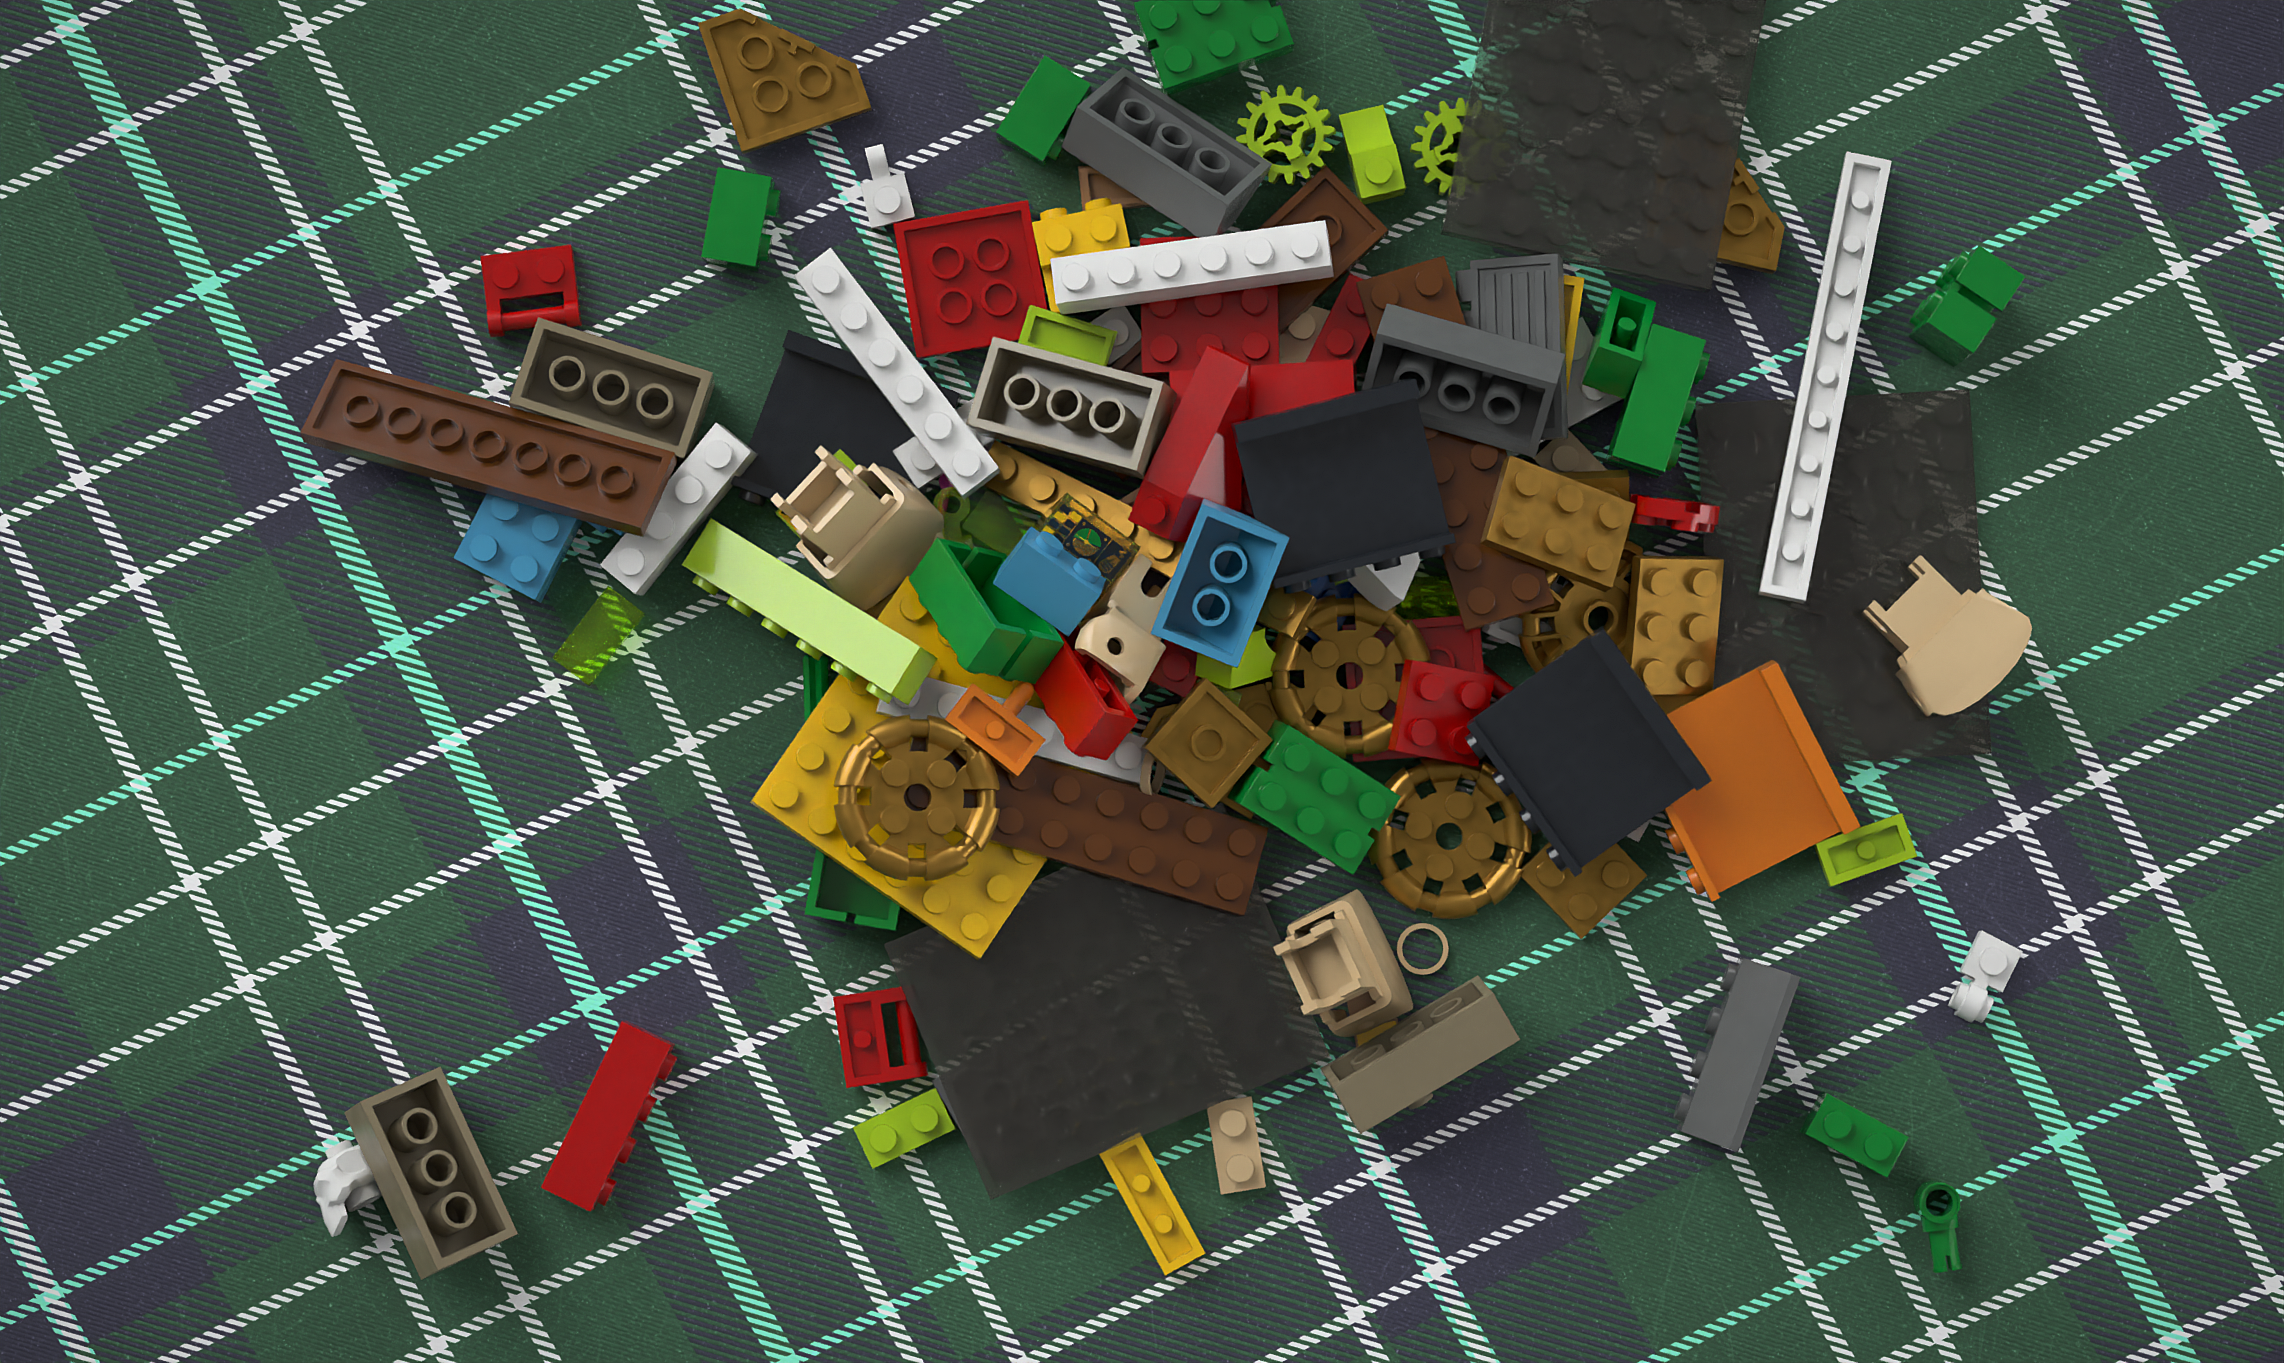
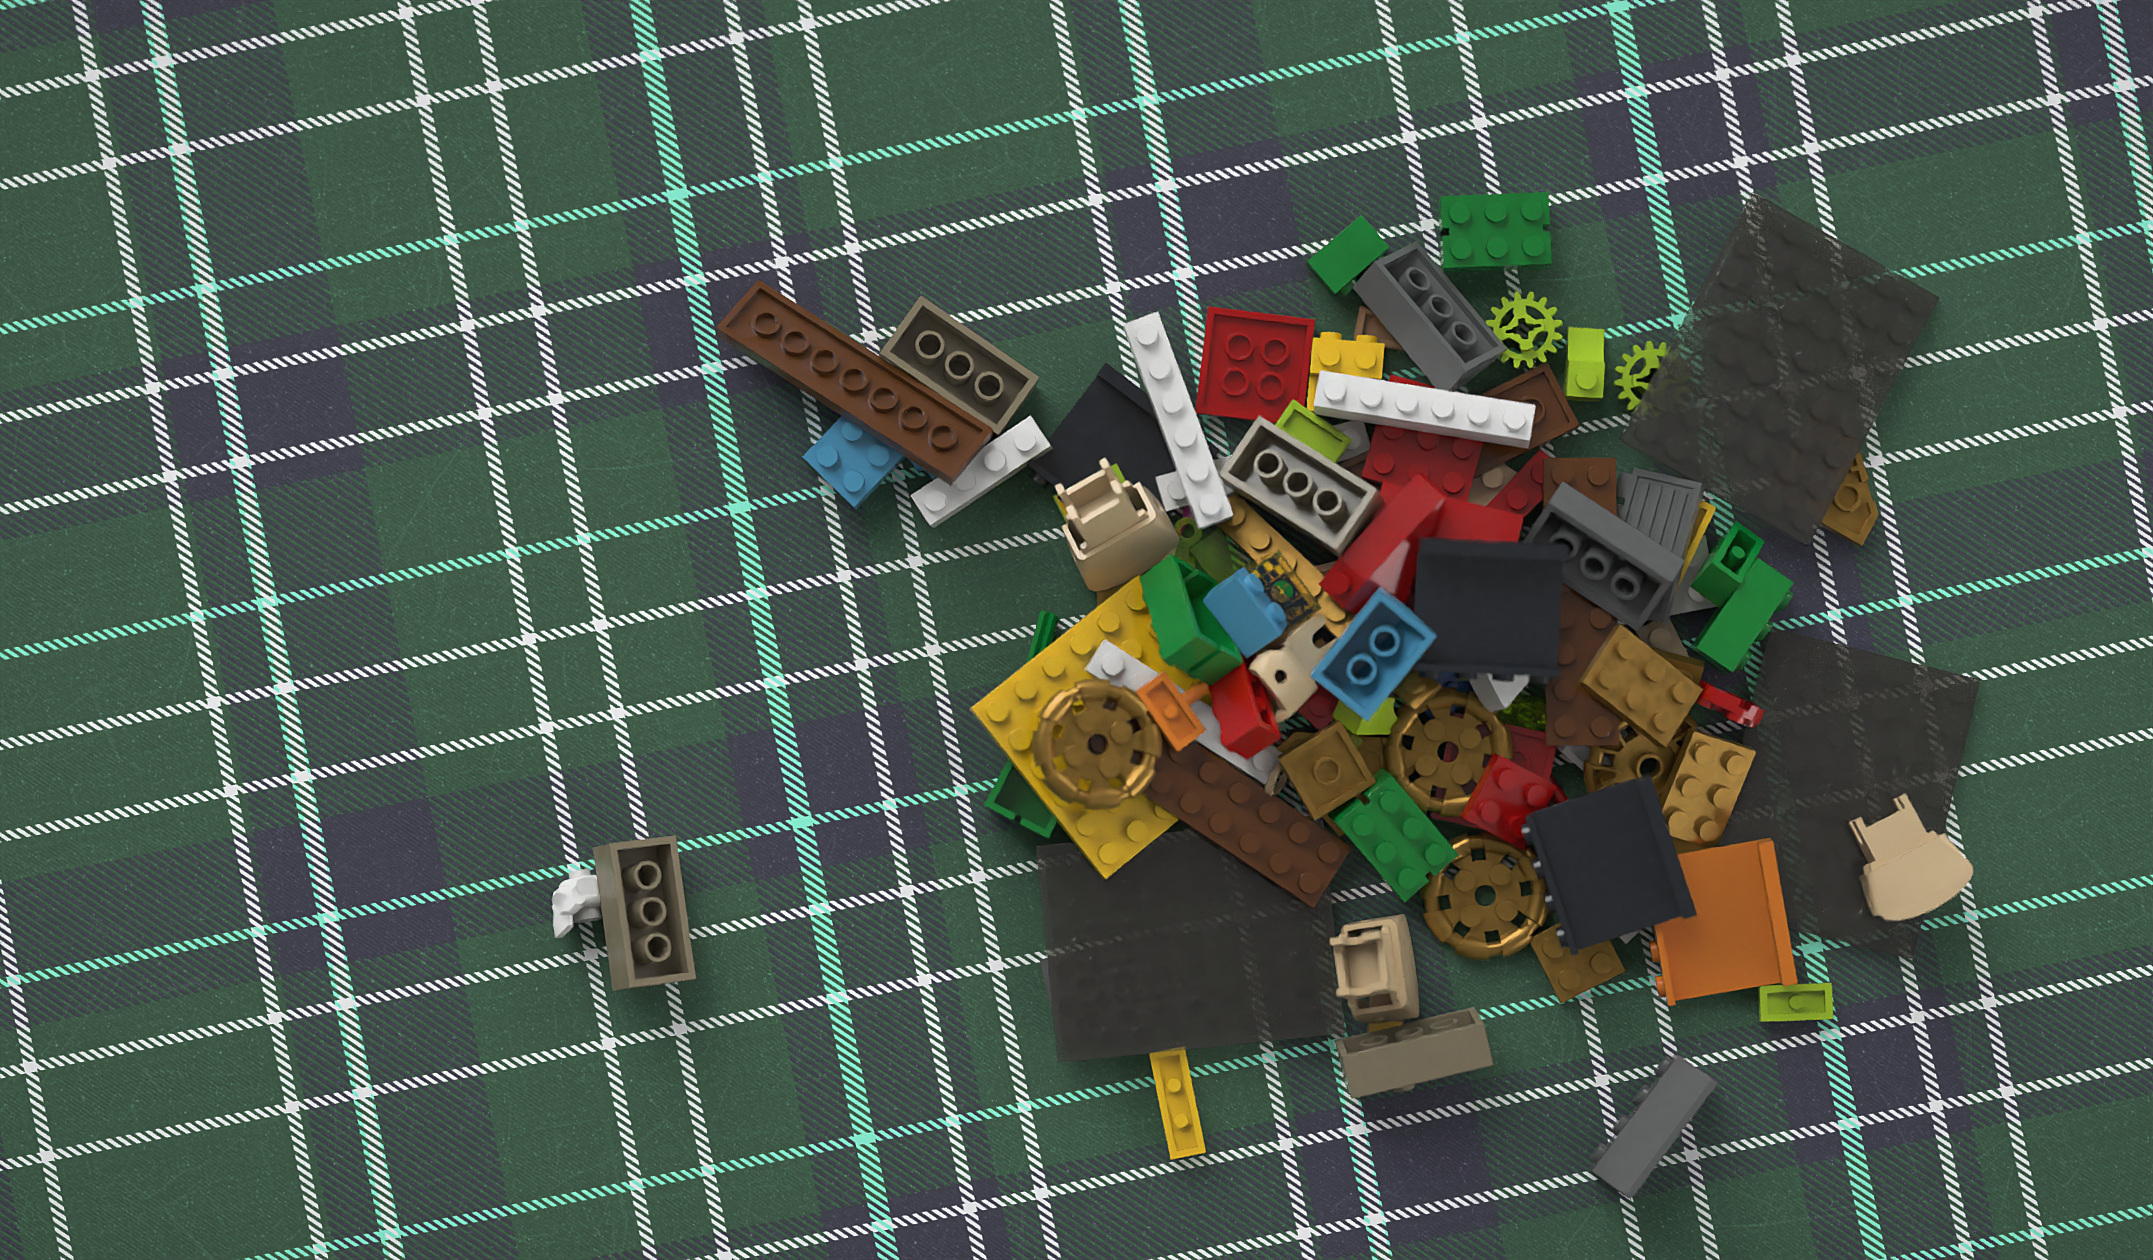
camera: 15 degrees right, 0 degrees up
(528, 276) = (923, 261): red plate -> none
(599, 636) = (891, 548): clear neon green plate -> none
(609, 1115) = (789, 911): red brick -> none
(740, 219) = (1093, 268): green brick -> none
(778, 80) = (1154, 172): pearl gold plate -> none
(809, 612) = (1057, 579): lime brick -> none
(865, 1041) = (999, 913): red plate -> none
(887, 195) = (1209, 283): white plate -> none
(904, 1127) = (1008, 988): lime plate -> none
(1236, 1145) = (1253, 1078): tan plate -> none
(1443, 940) = (1454, 983): tan piece -> none
(1825, 378) = (1874, 637): white plate -> none
(1853, 1134) = (1721, 1213): green brick -> none
(1959, 314) = (1989, 621): green piece -> none
(1988, 964) = (1862, 1118): white plate -> none

